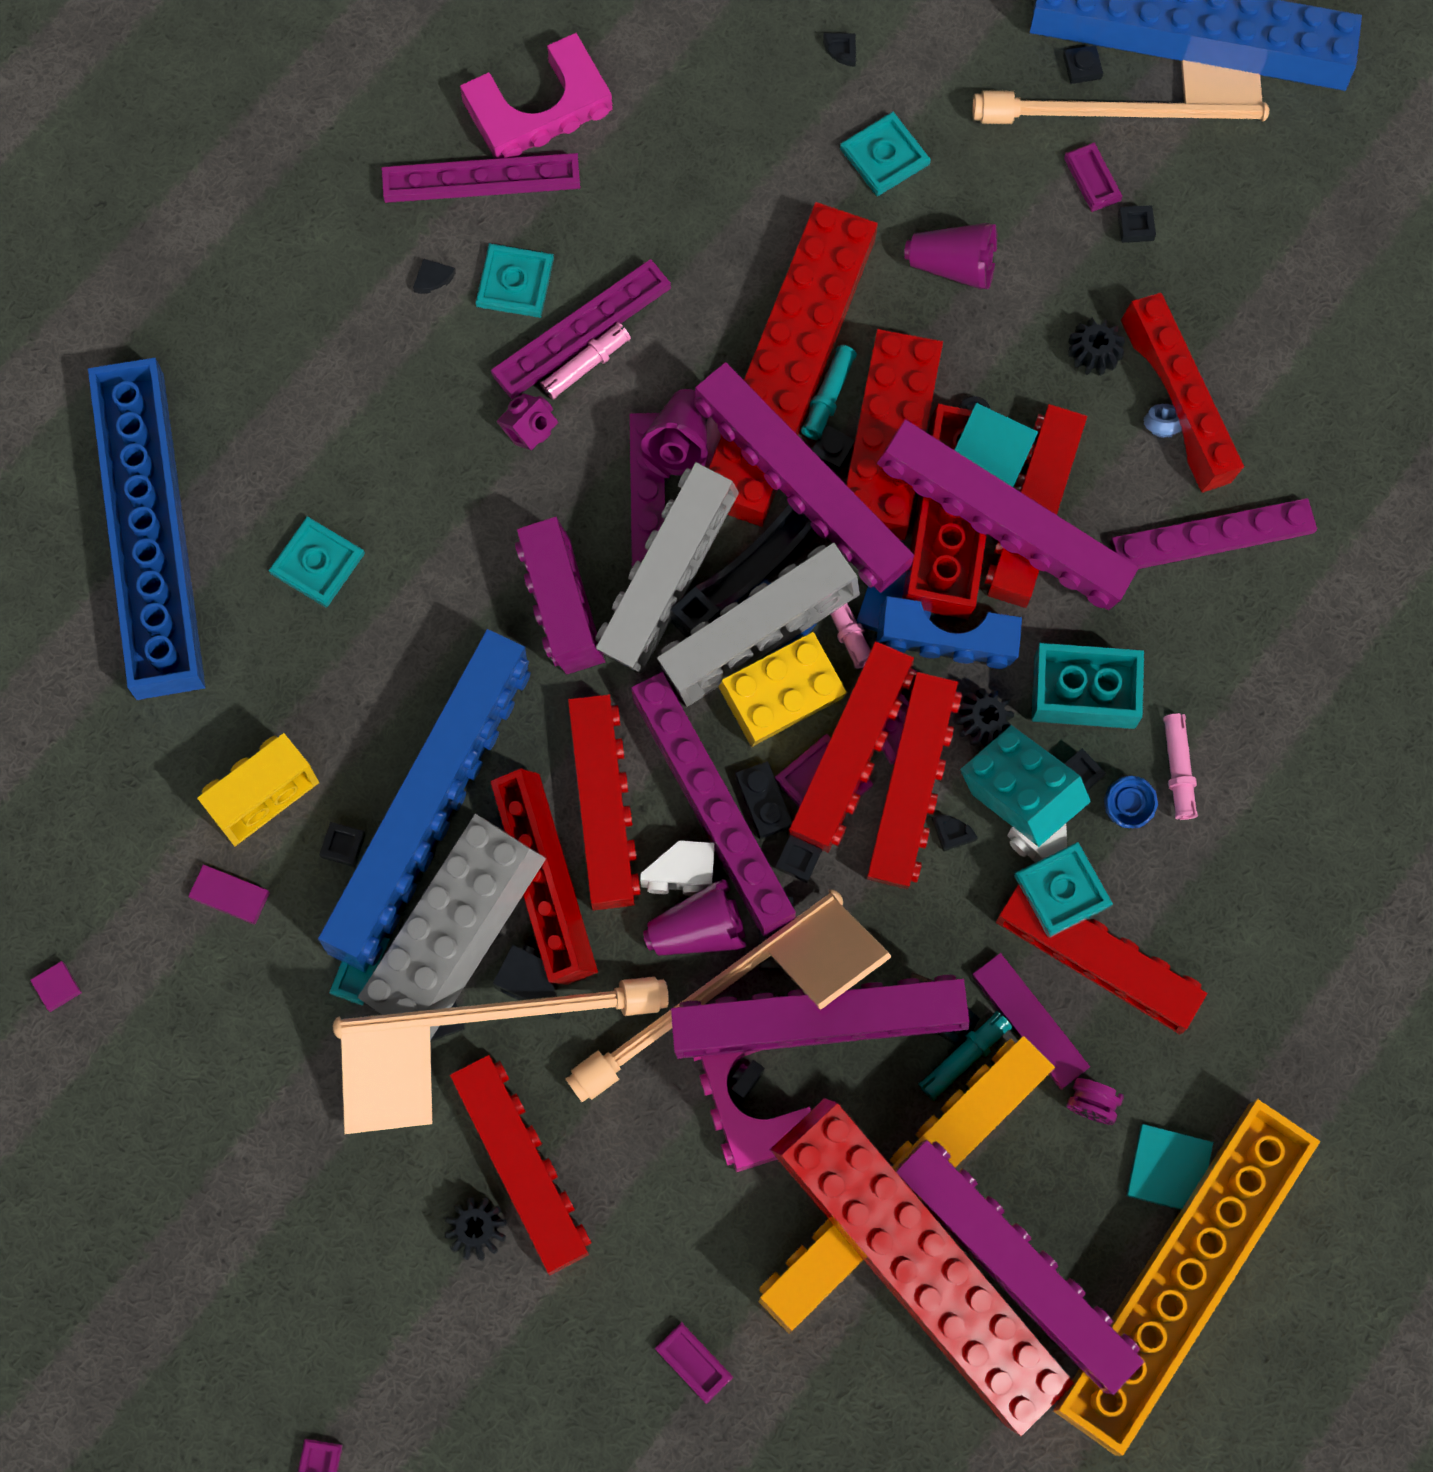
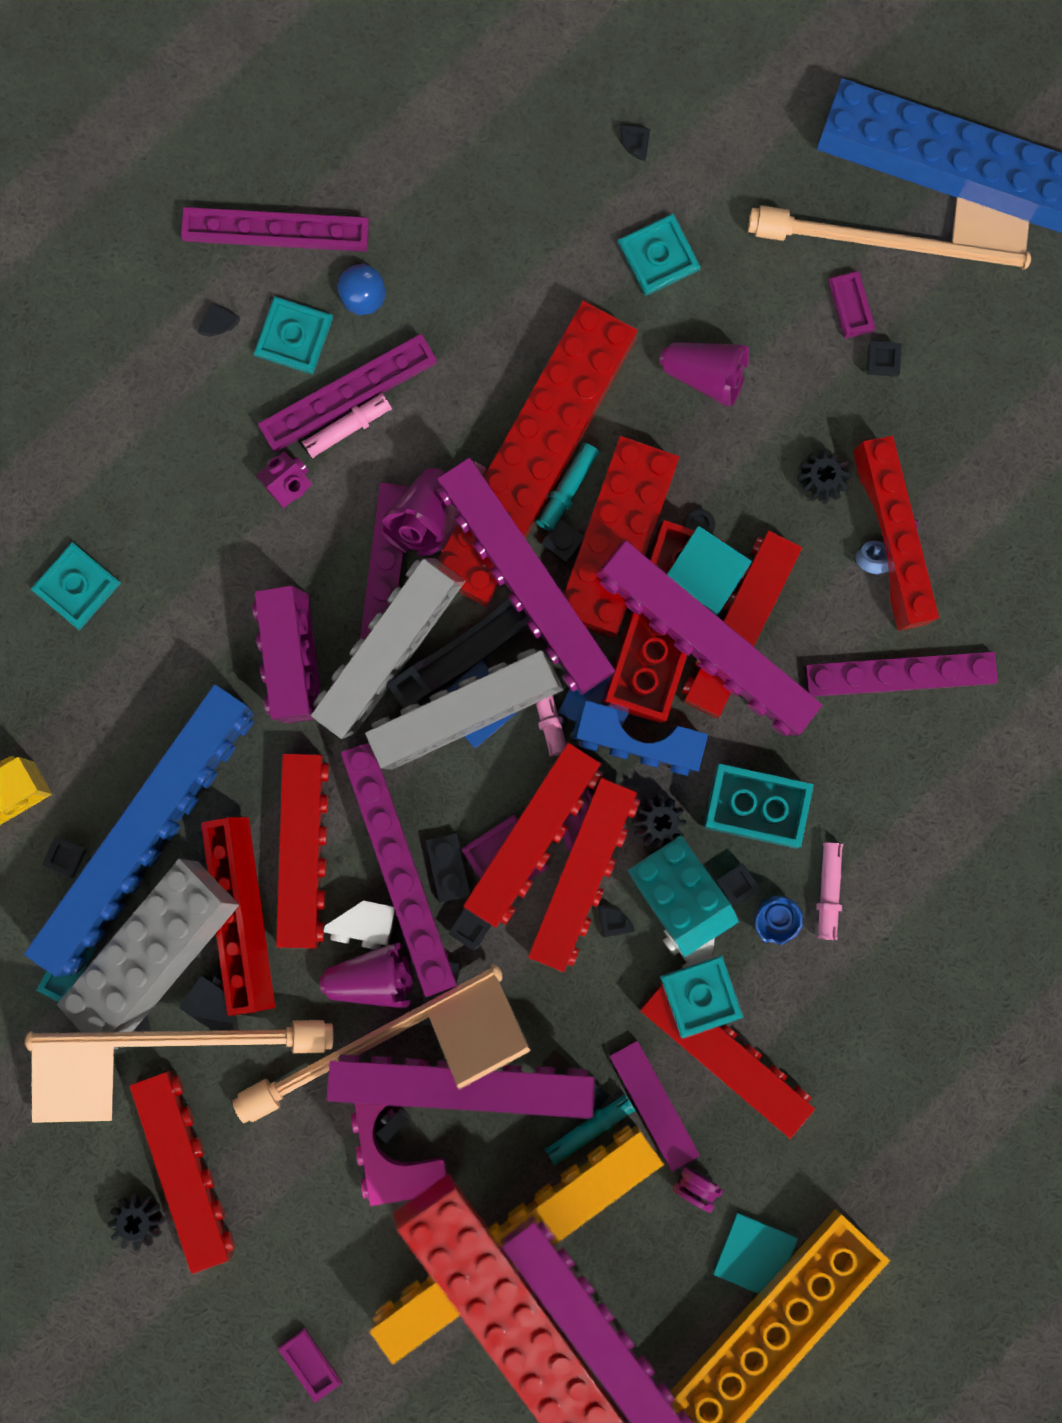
camera: 10 degrees right, 10 degrees up
(512, 131) = (380, 164): dark pink arch -> none
(580, 225) = (361, 289): none -> blue hair
(782, 689) = (479, 770): yellow brick -> none
(1083, 64) = (862, 188): black plate -> none

